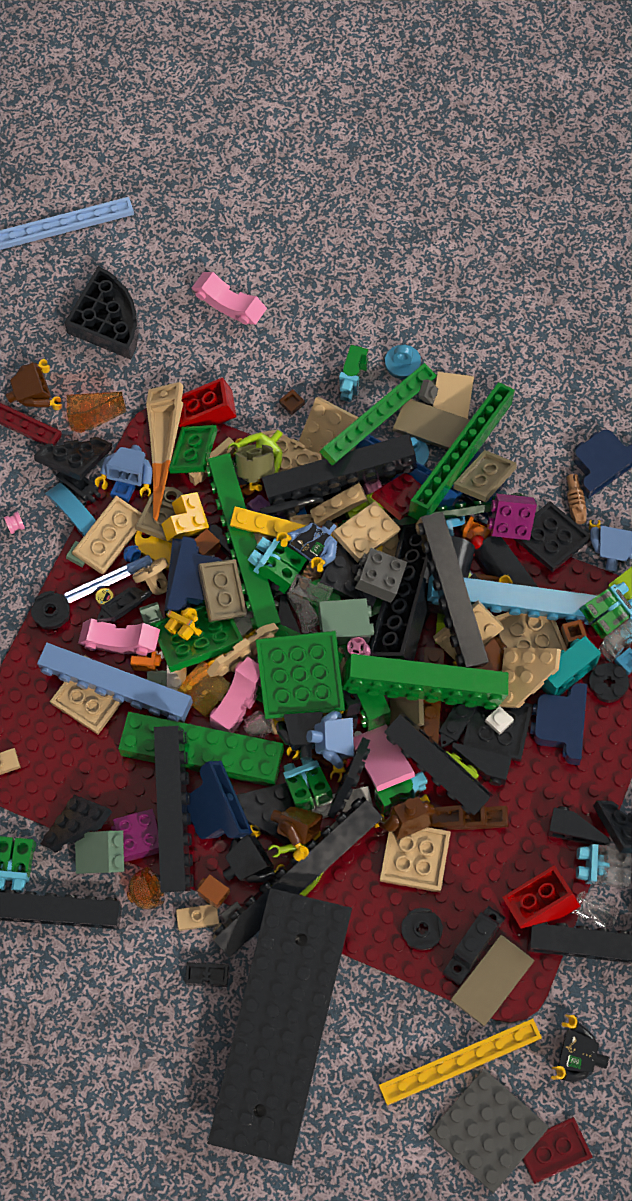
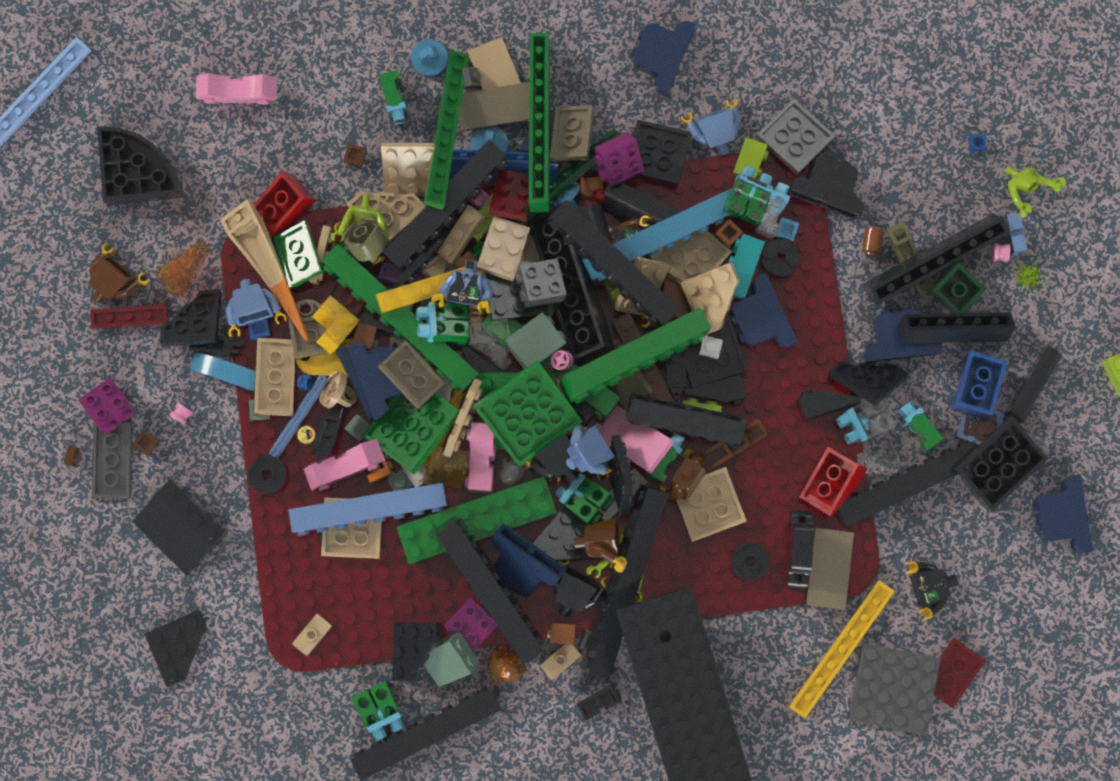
camera: 30 degrees left, 15 degrees up
(185, 621) = (388, 424): yellow hips -> none
(576, 500) = (659, 105): medium nougat hinge -> none

